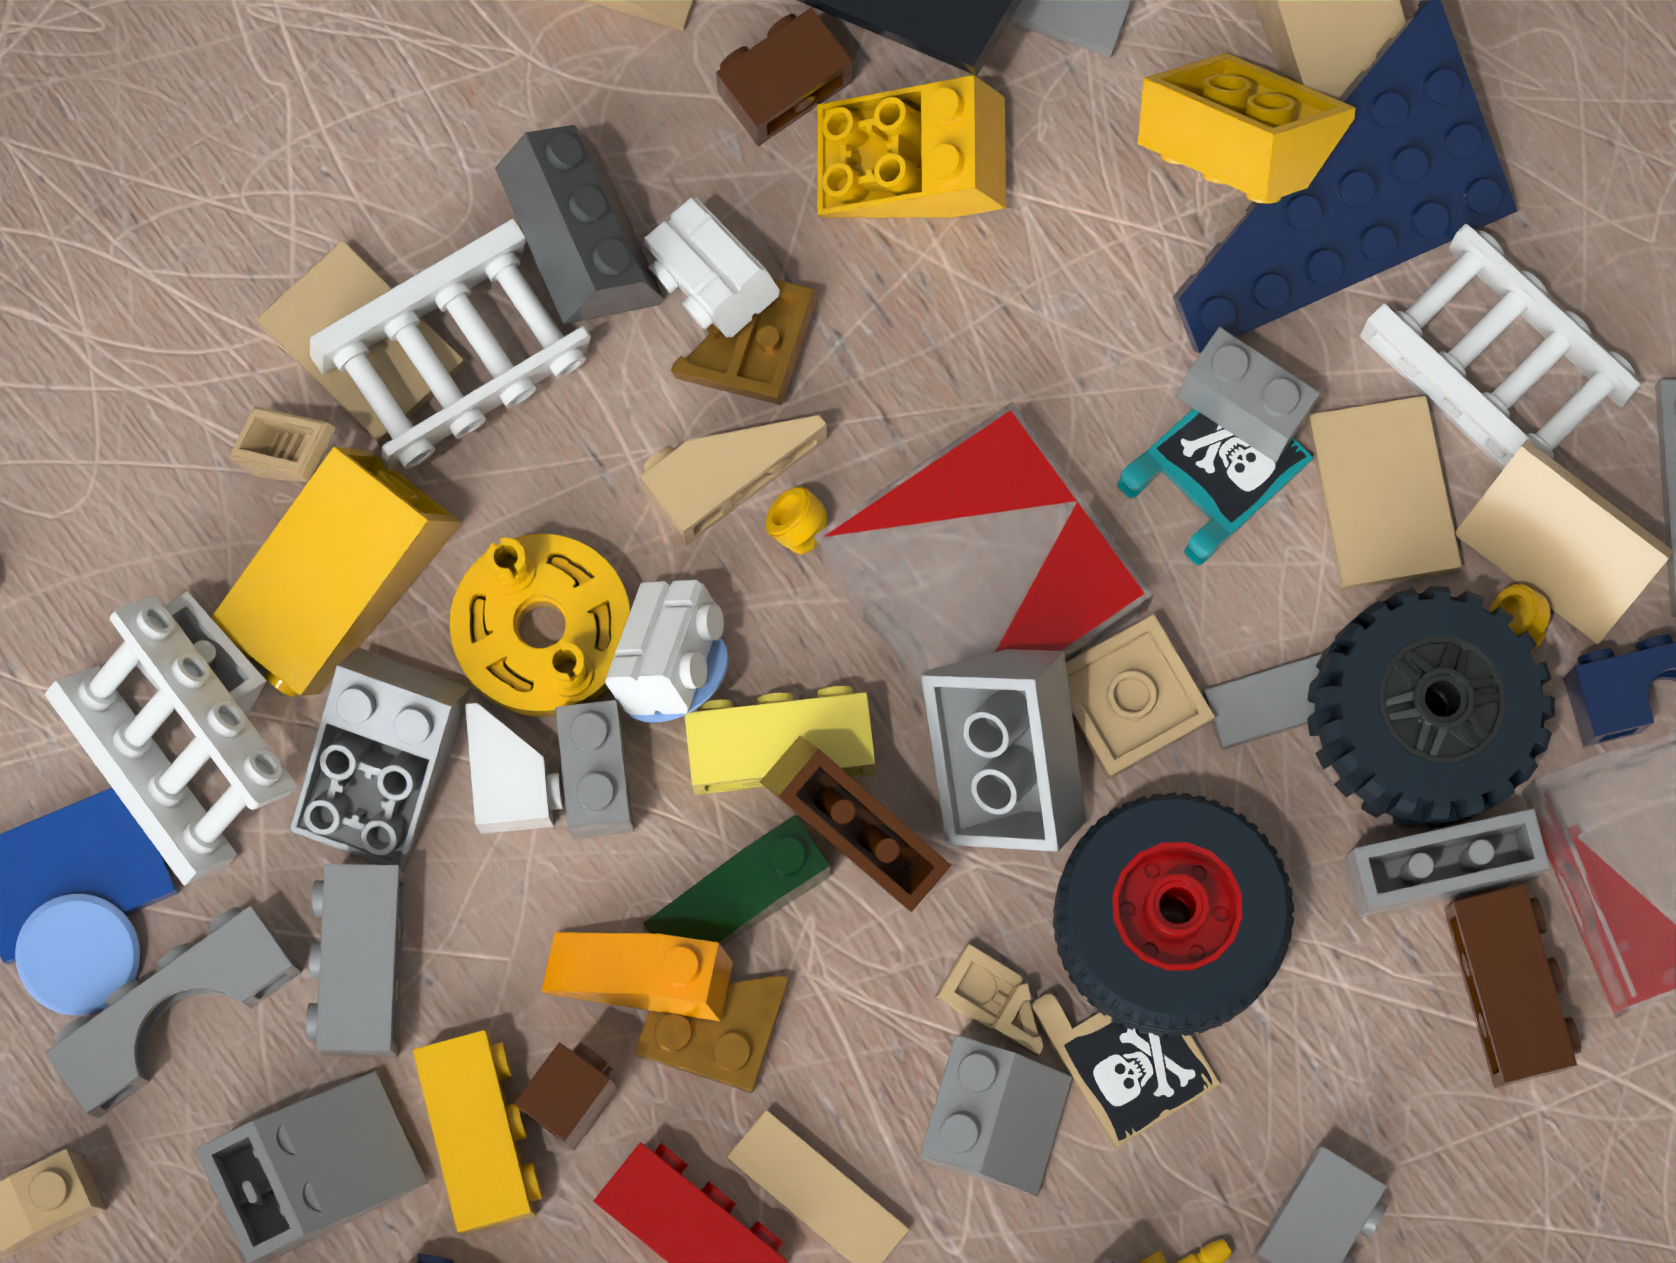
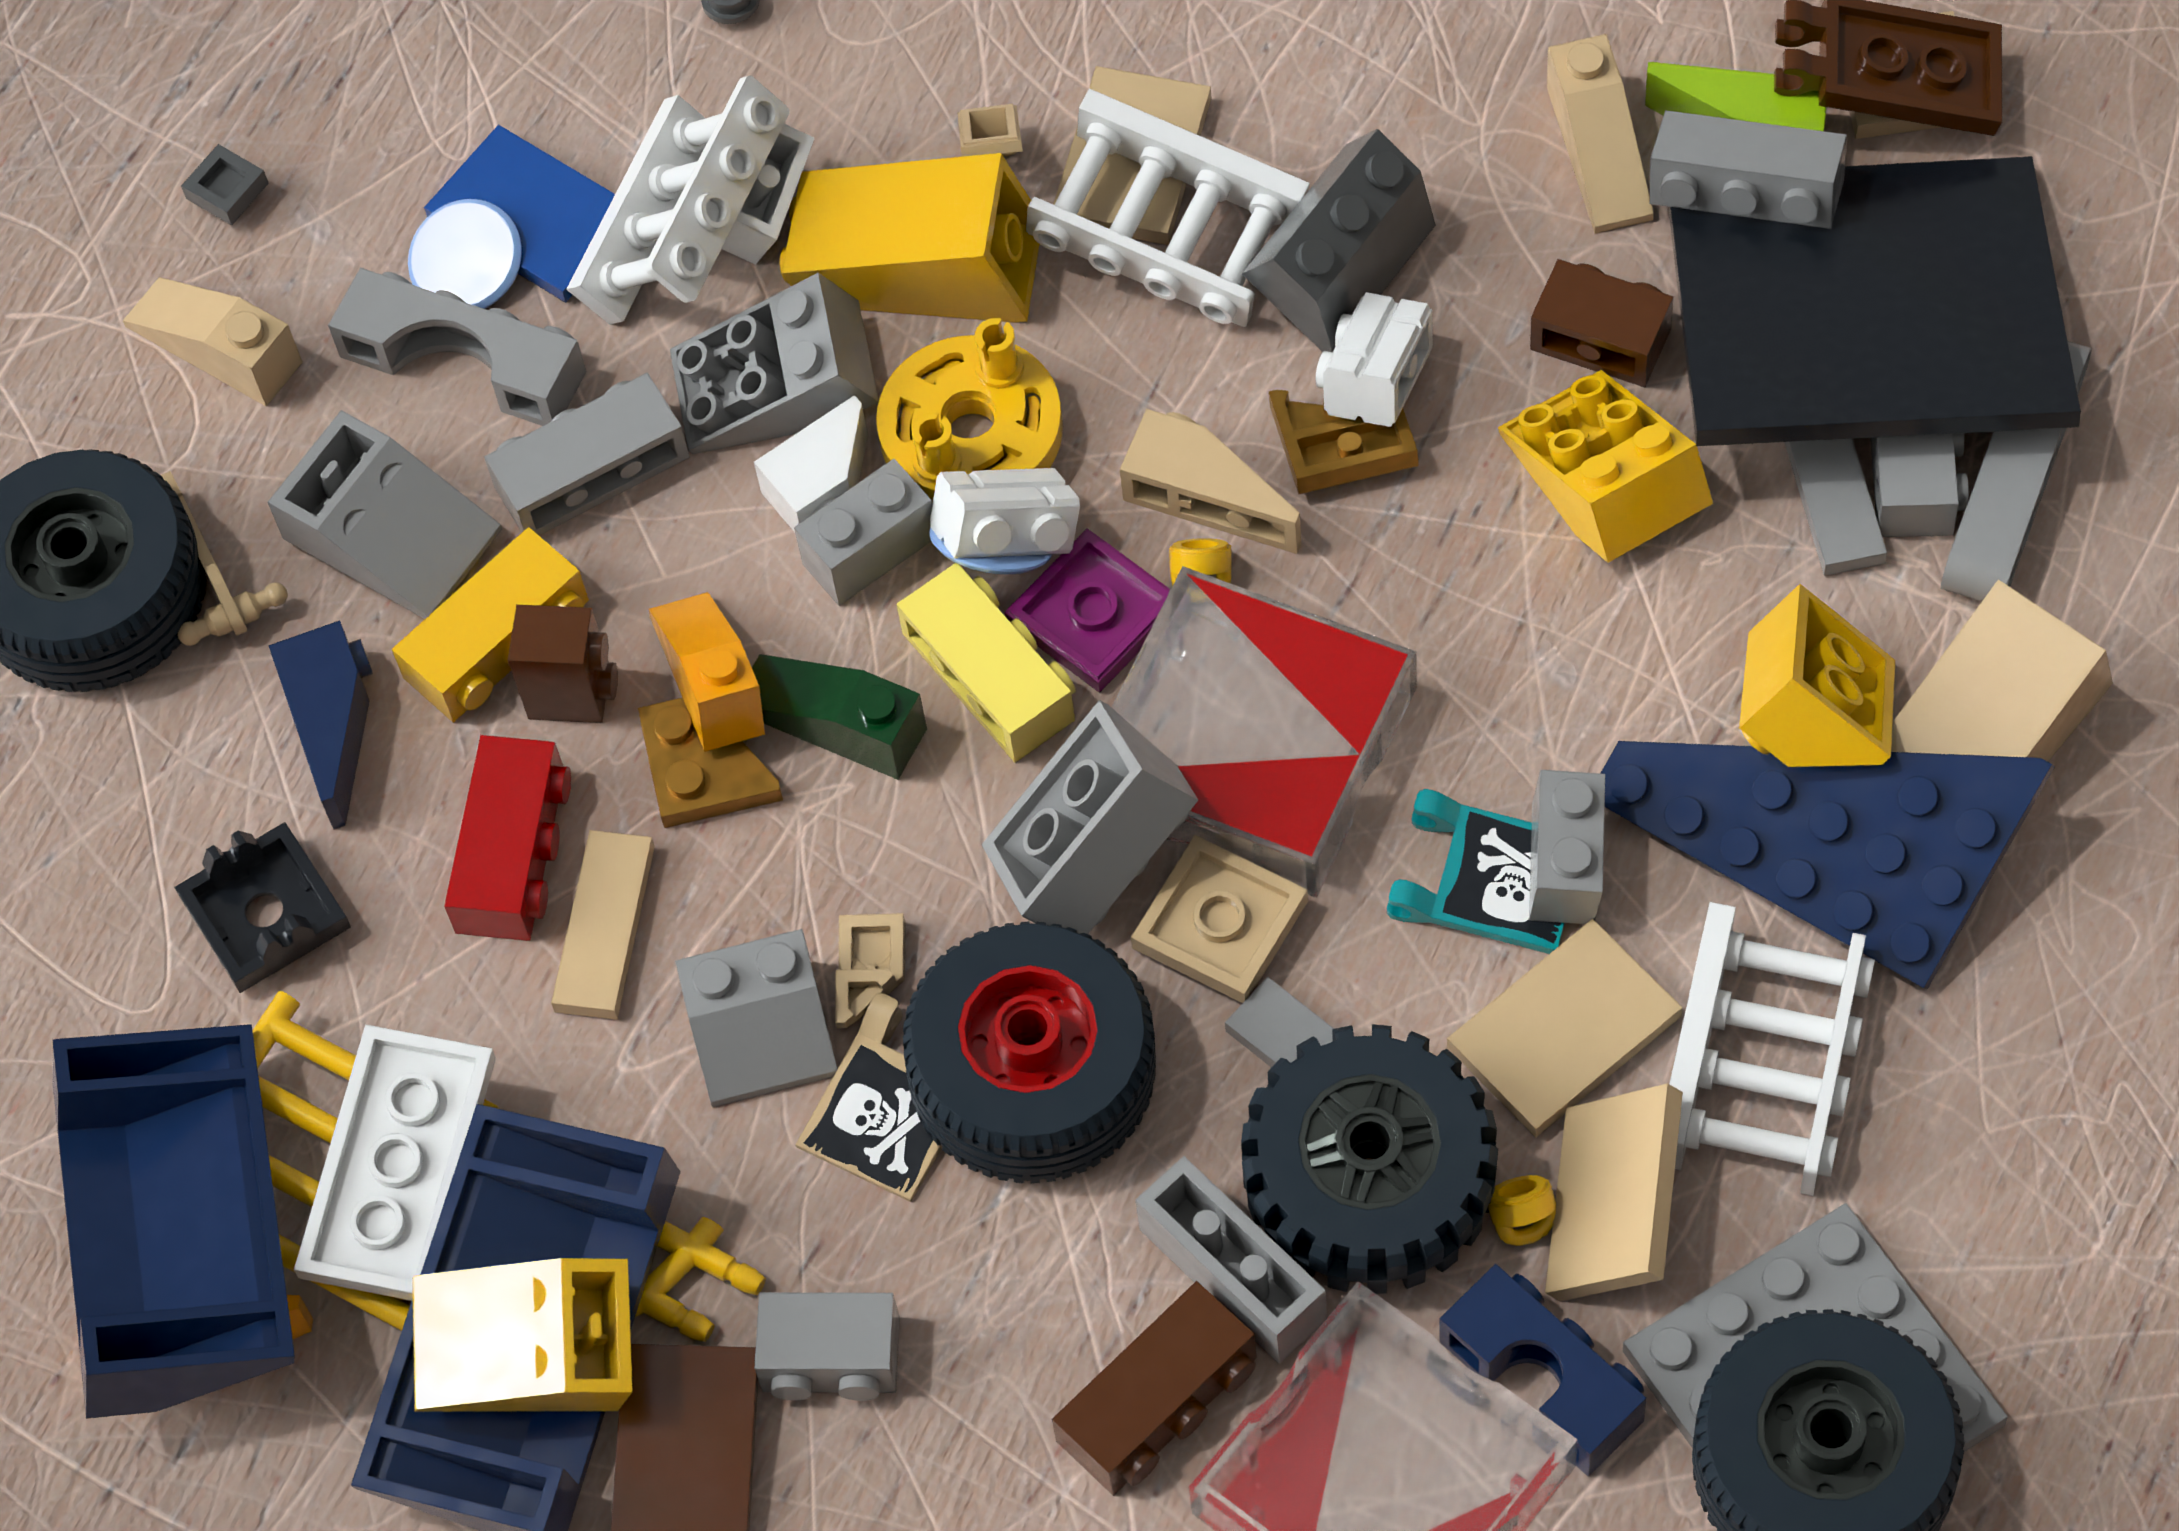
camera: 65 degrees right, 15 degrees down
(780, 630) = (1091, 609): none -> magenta tile
(855, 823) = (941, 741): reddish brown brick -> none

